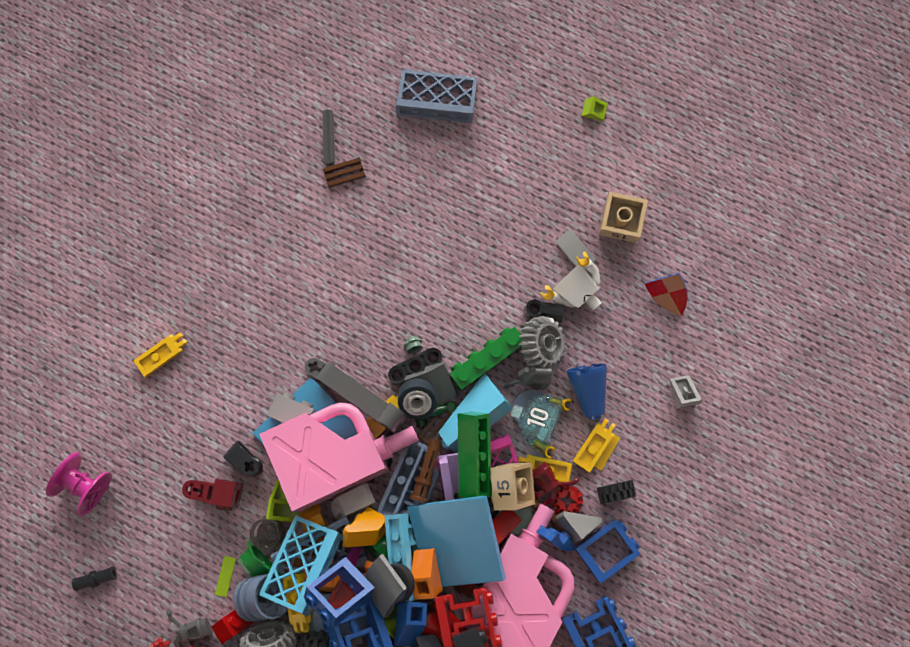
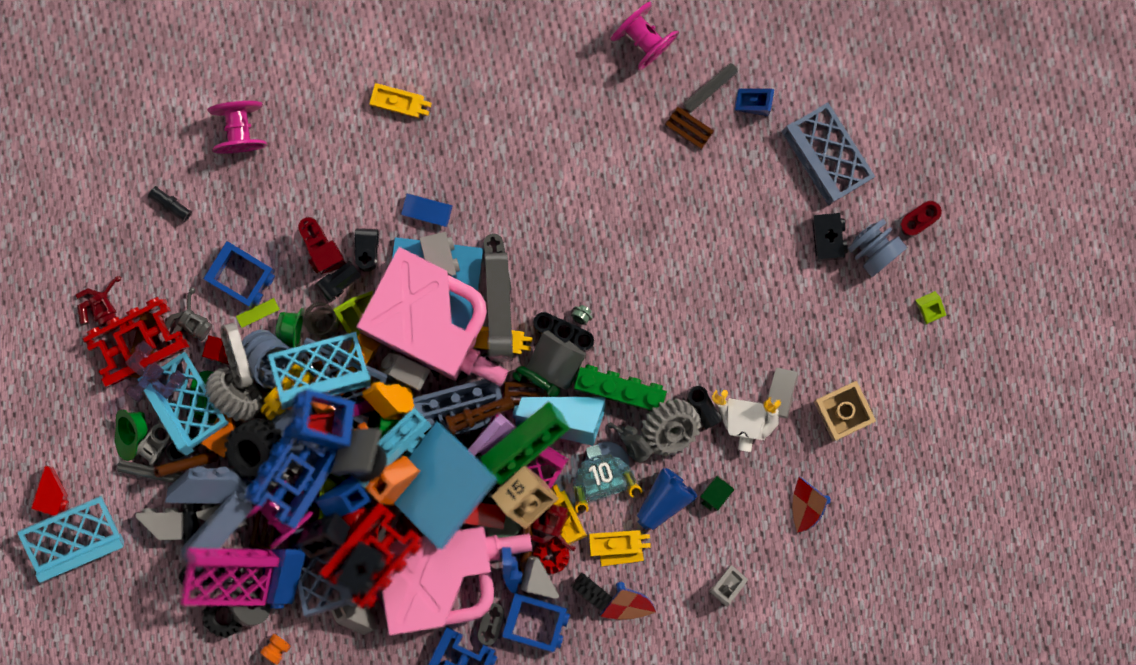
camera: 50 degrees right, 5 degrees up
(166, 573) = (220, 263): none -> blue window
(240, 619) = (236, 355): none -> light grey beam
(250, 502) = (335, 283): none -> black piece
(252, 395) = (426, 210): none -> blue slope
(255, 149) = (644, 35): none -> dark pink piece
(362, 114) = (754, 101): none -> blue slope
(417, 389) = (540, 347): wheel -> none
(499, 145) = (821, 226): none -> black brick
(527, 109) = (877, 247): none -> sand blue wheel
(529, 70) = (920, 218): none -> dark red plate
(588, 581) = (496, 625): none -> dark grey beam
(612, 349) = (716, 494): none -> dark green brick
(644, 473) = (628, 604): none -> shield

